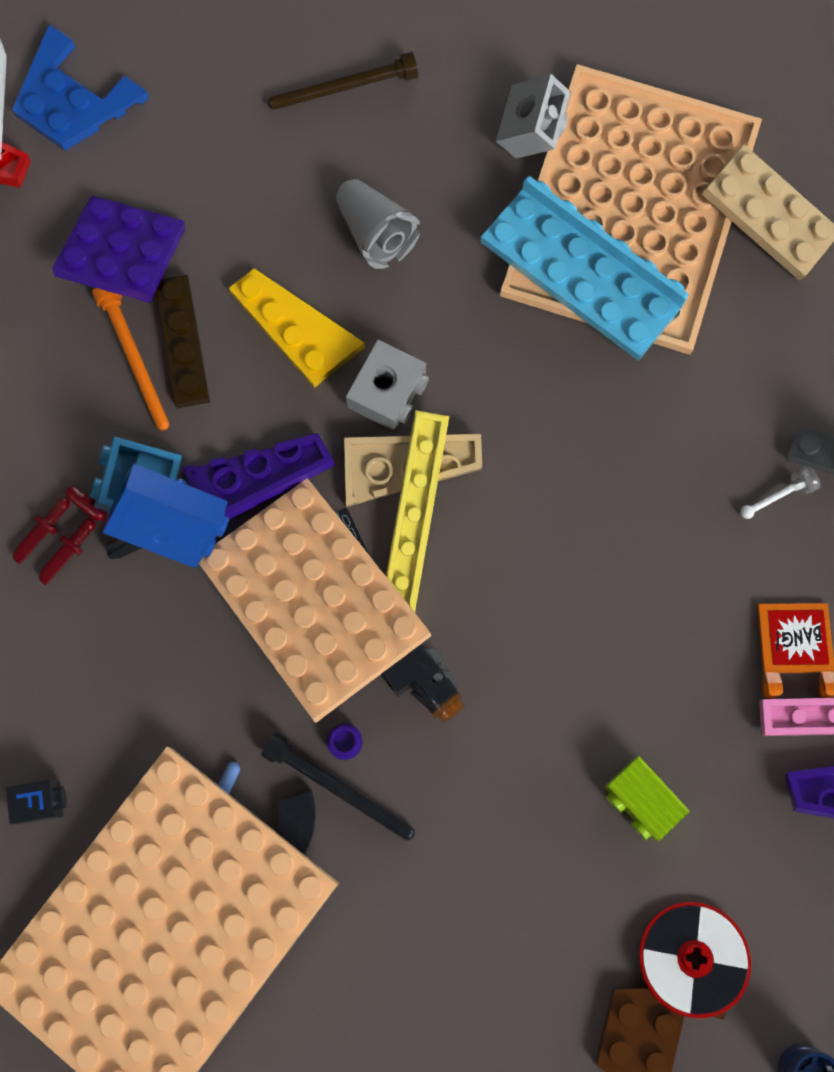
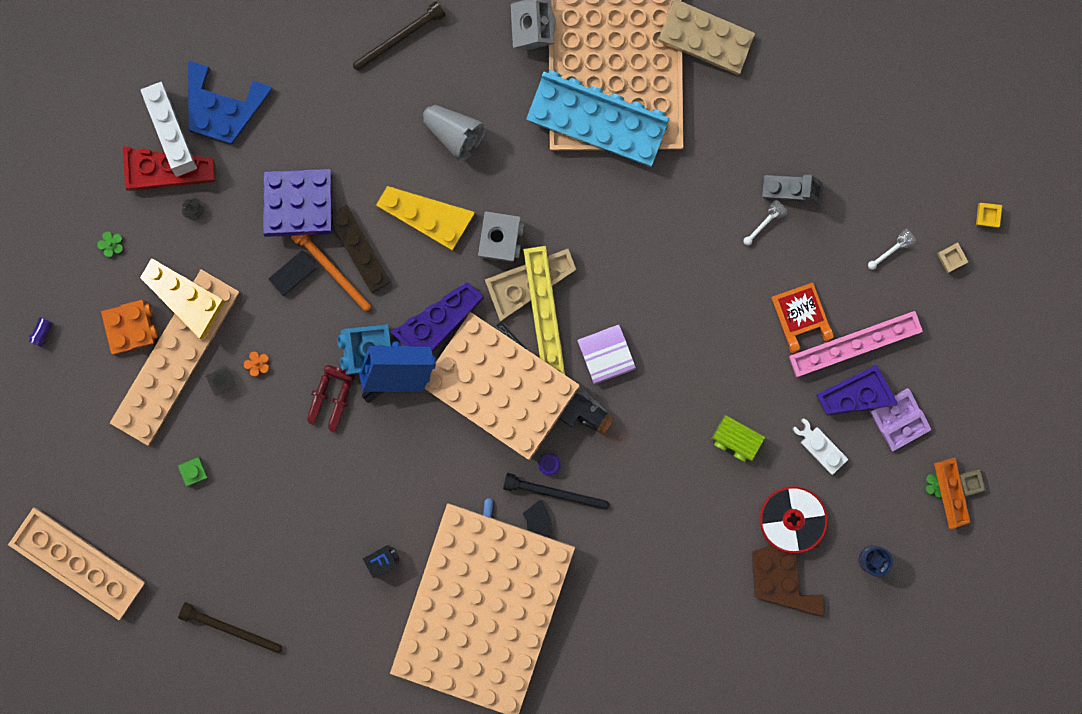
camera: 20 degrees left, 10 degrees up
(76, 343) = (292, 273): none -> black tile
(486, 606) = (606, 354): none -> slope
(770, 859) = (821, 448): none -> white plate

